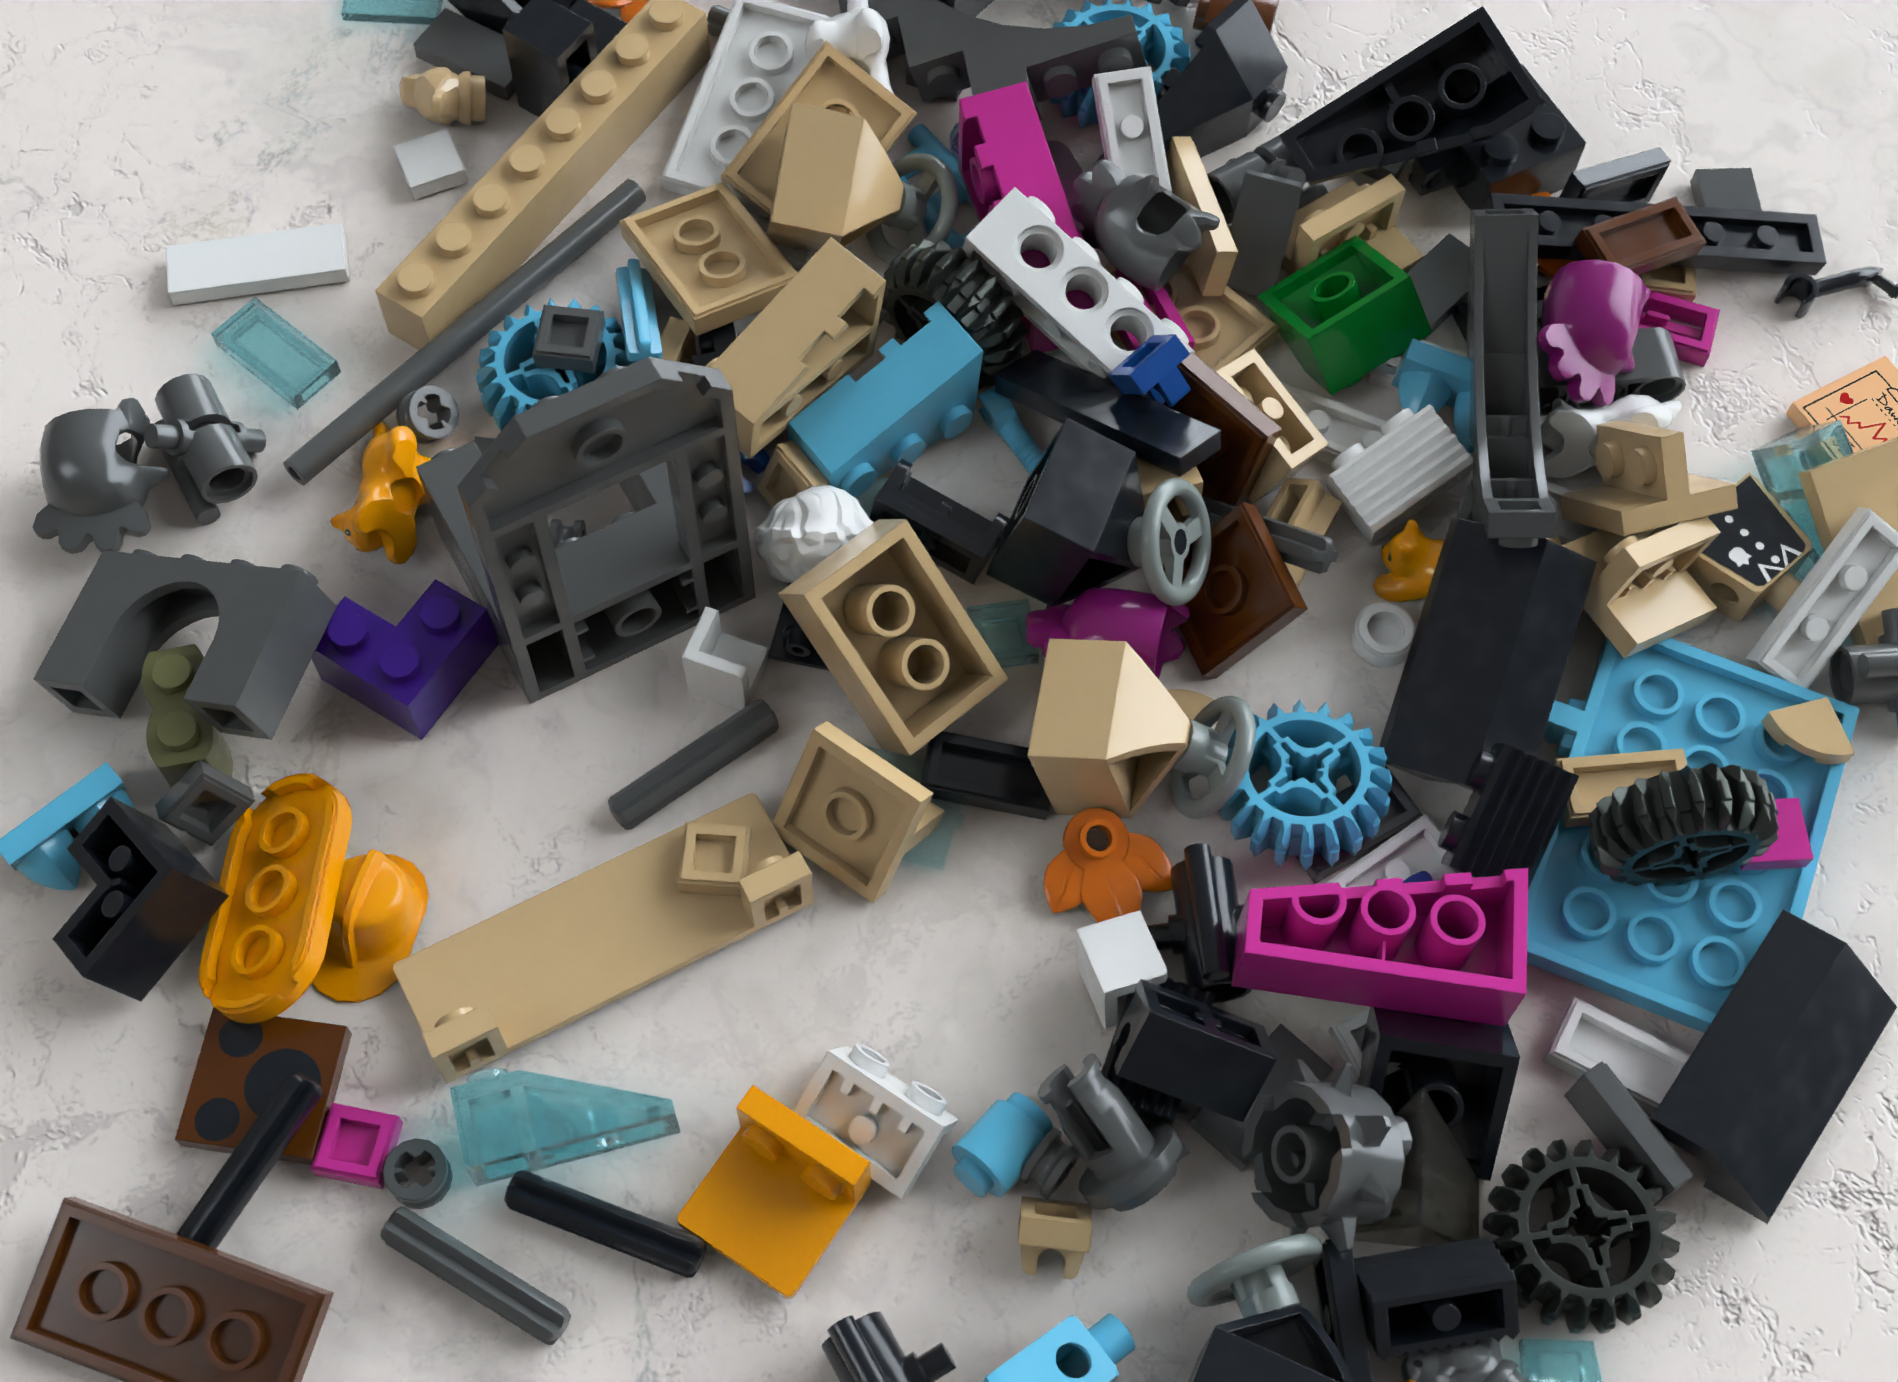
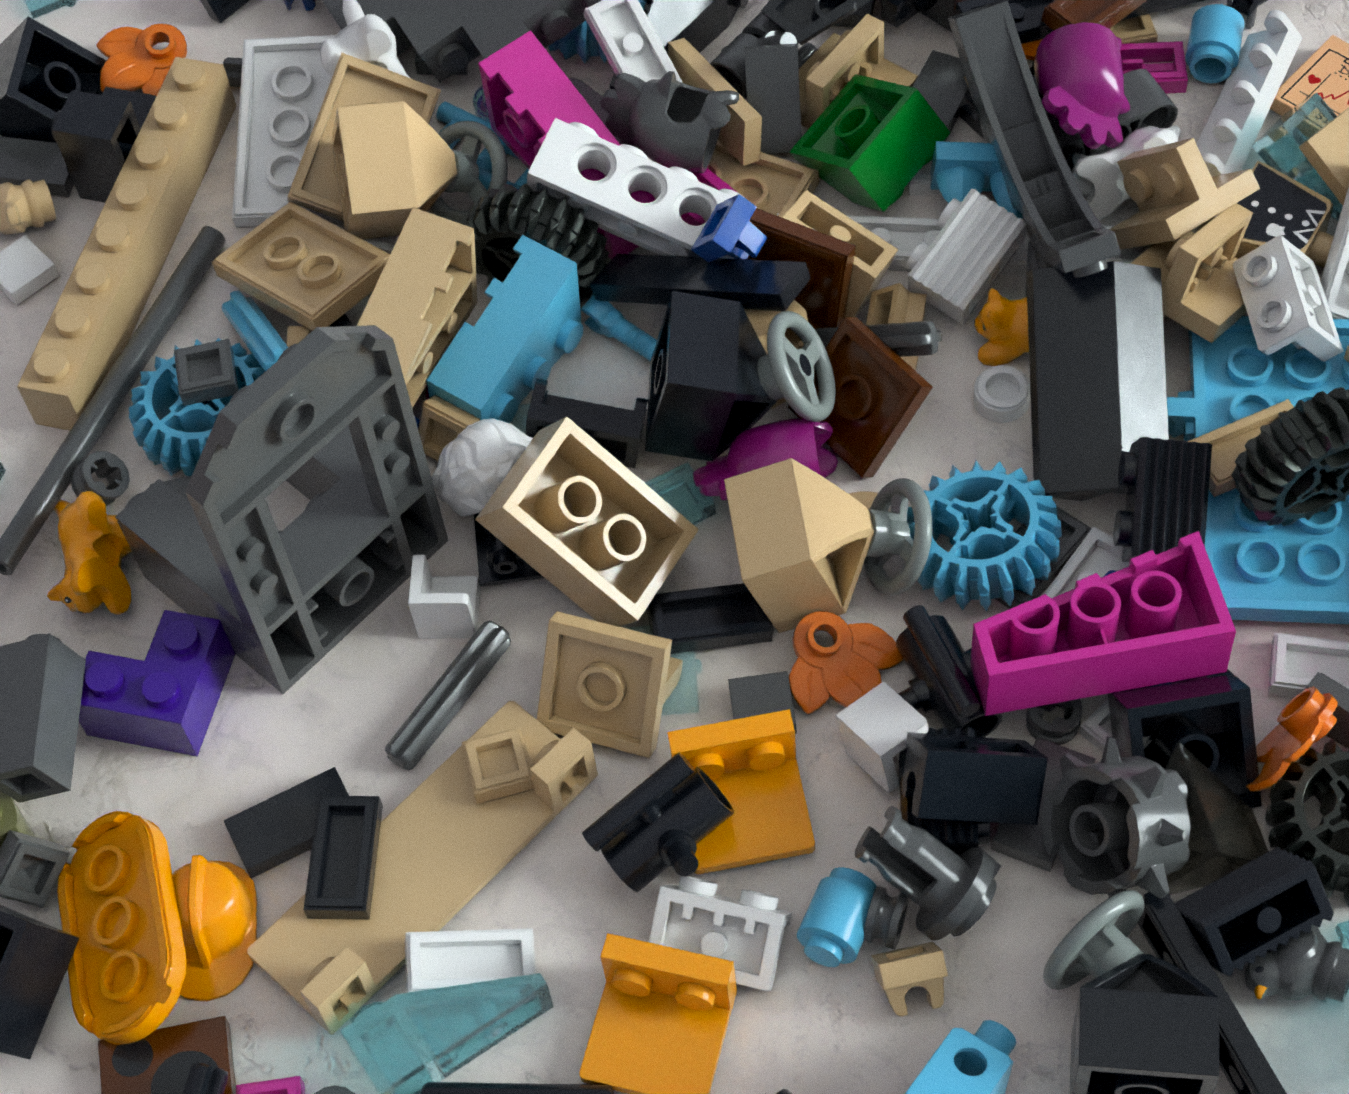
camera: 10 degrees left, 5 degrees down
(489, 844) = (282, 824): none -> black tile
(523, 902) = (343, 857): none -> black tile
(609, 1055) = (466, 957): none -> white tile
(853, 983) = (660, 823): none -> black pin
(950, 977) = (760, 777): none -> light orange bracket
(1008, 888) = (761, 695): none -> dark grey tile
(1308, 1023) = (1061, 729): none -> dark grey bush
(1551, 1121) = (1300, 725): none -> orange plate
(1721, 639) = (1286, 300): none -> white bracket
(1753, 323) = (1214, 42): none -> medium azure brick
(1765, 397) = (1248, 95): none -> white hinge

